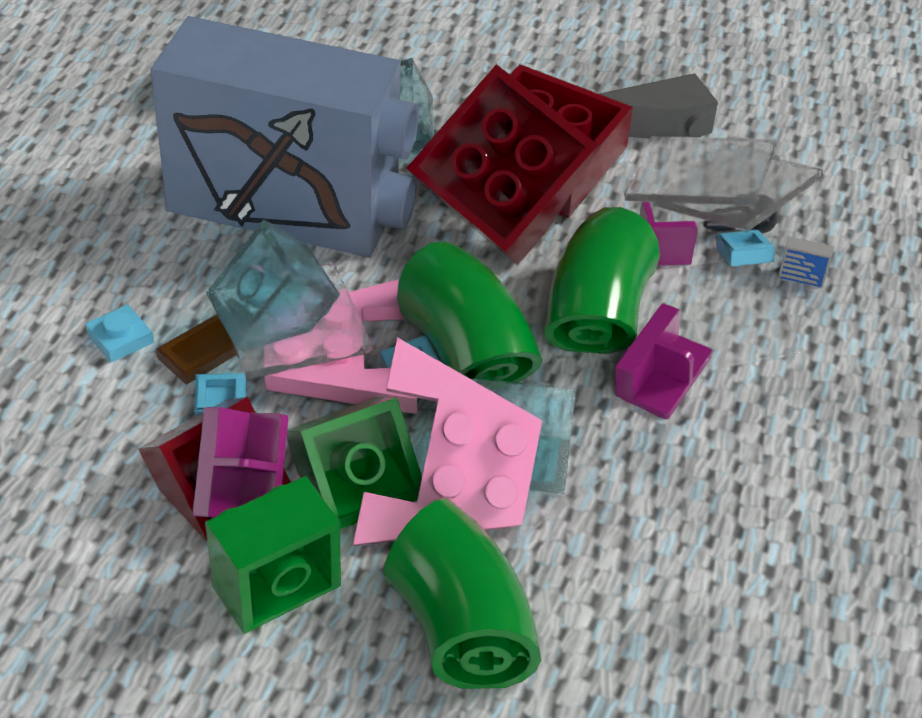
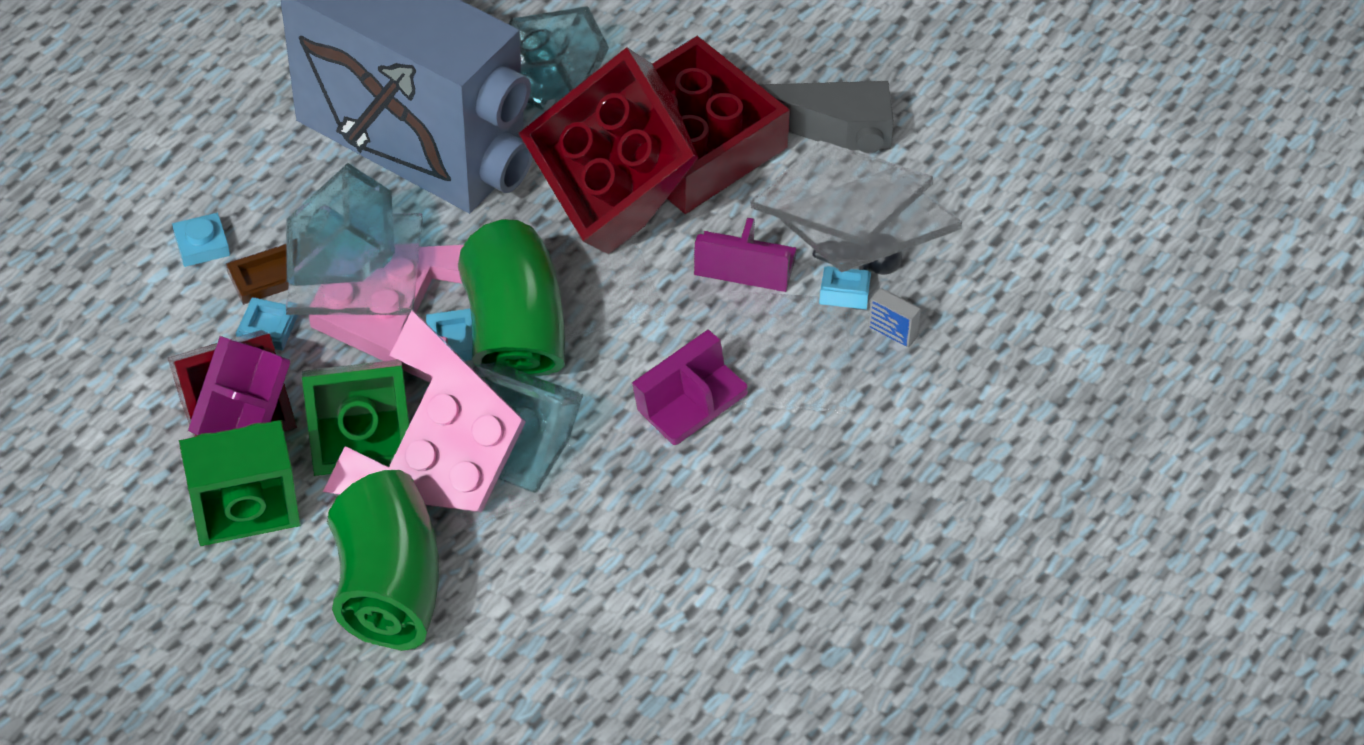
camera: 20 degrees right, 5 degrees up
(601, 283) = (663, 292): green brick -> none

